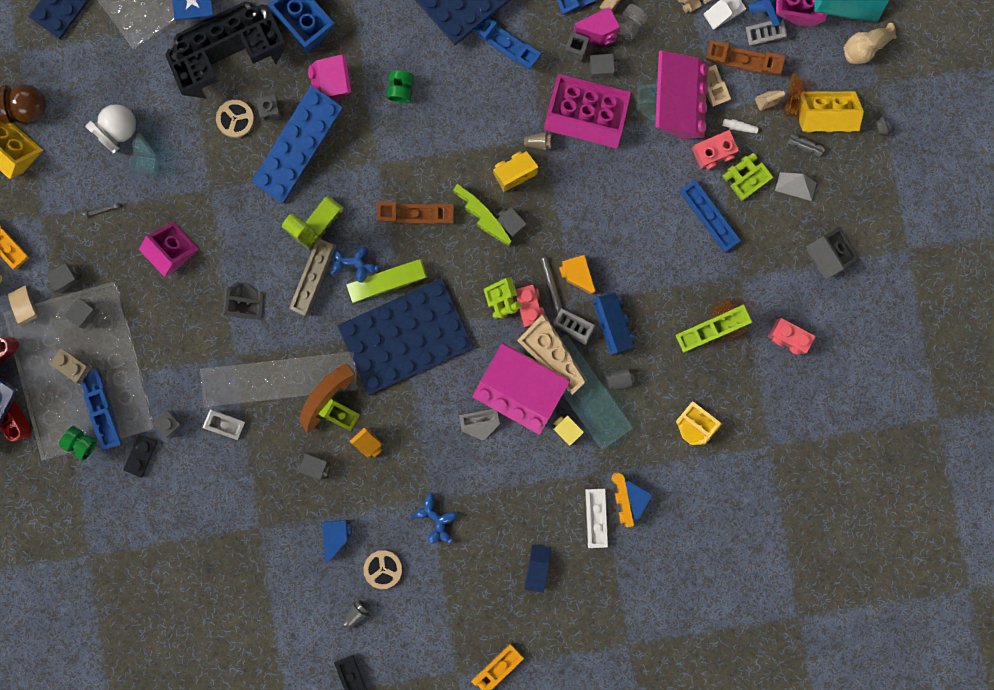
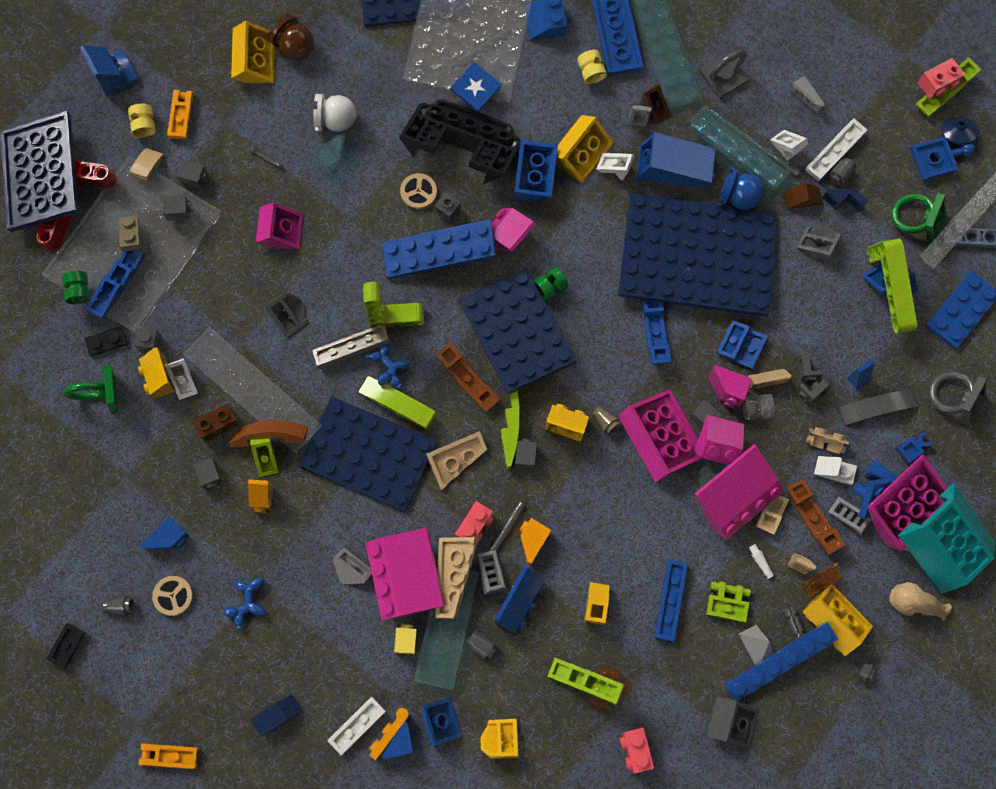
camera: 45 degrees right, 10 degrees down
(180, 489) = (106, 389): none -> green tile
(198, 439) = (155, 374): none -> yellow slope
(280, 428) = (215, 422): none -> reddish brown brick
(413, 144) = (517, 331): none -> dark blue plate
(466, 275) = (455, 457): none -> tan wing
(502, 292) = (460, 497): lime plate -> none
(576, 46) = (701, 383): dark grey brick -> none
(631, 72) = (720, 440): none -> dark pink slope
(647, 456) = (441, 721): none -> blue slope
(665, 270) = (597, 603): none -> yellow slope
(715, 149) = (724, 558): coral brick -> none
(822, 178) = (781, 661): none -> blue plate

